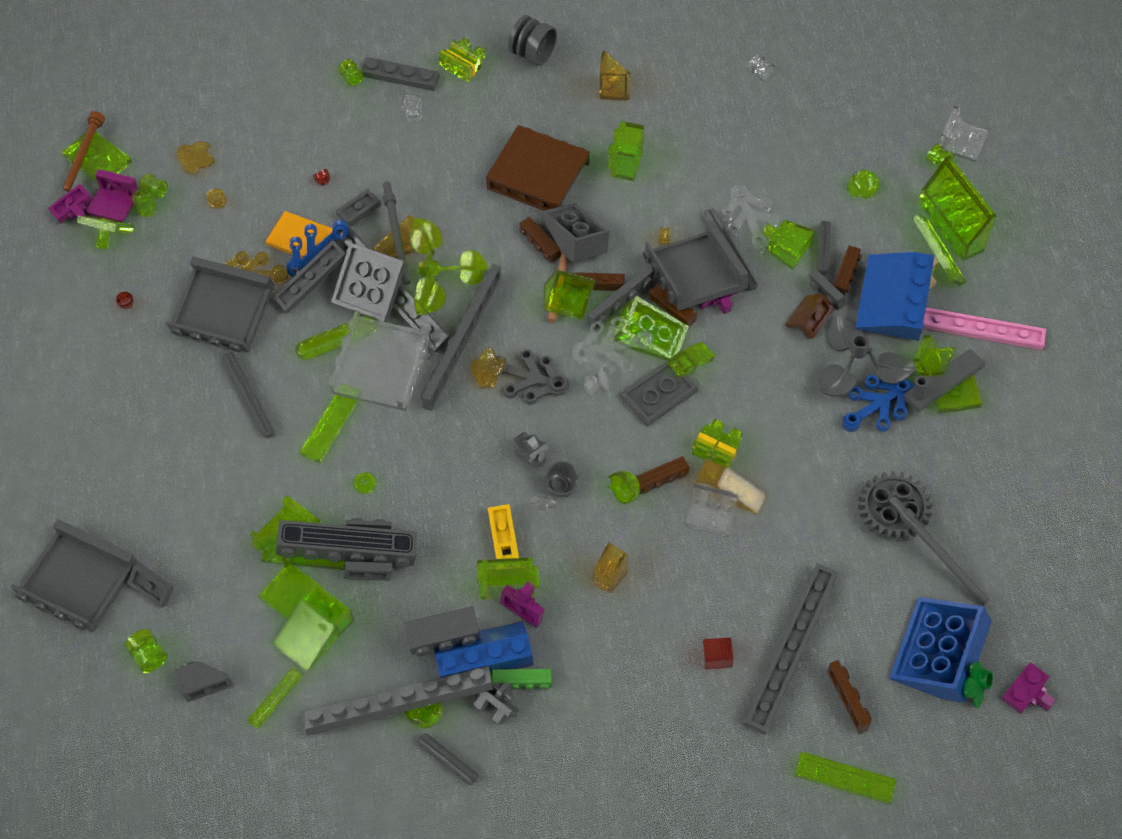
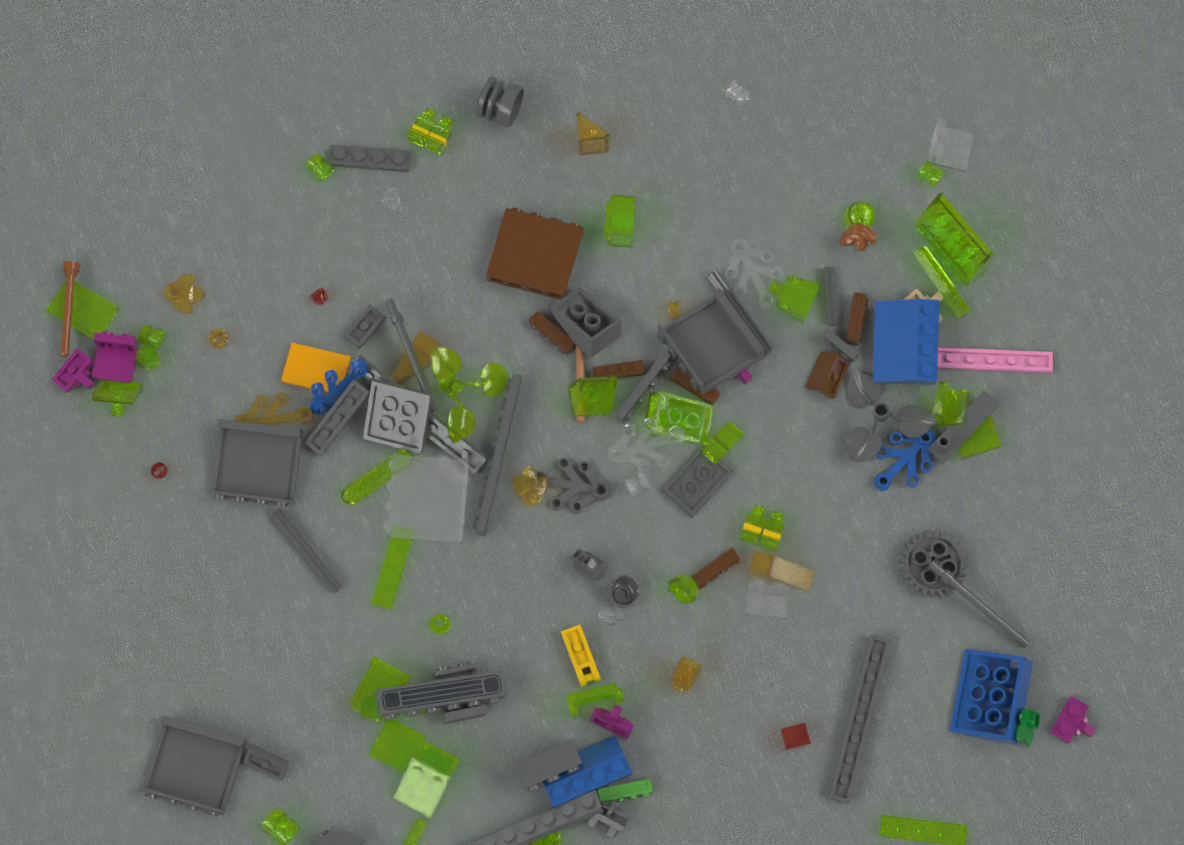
camera: 10 degrees left, 15 degrees up
(849, 696) = (917, 756): reddish brown plate -> none
(859, 196) = (858, 234): none -> dark orange hair

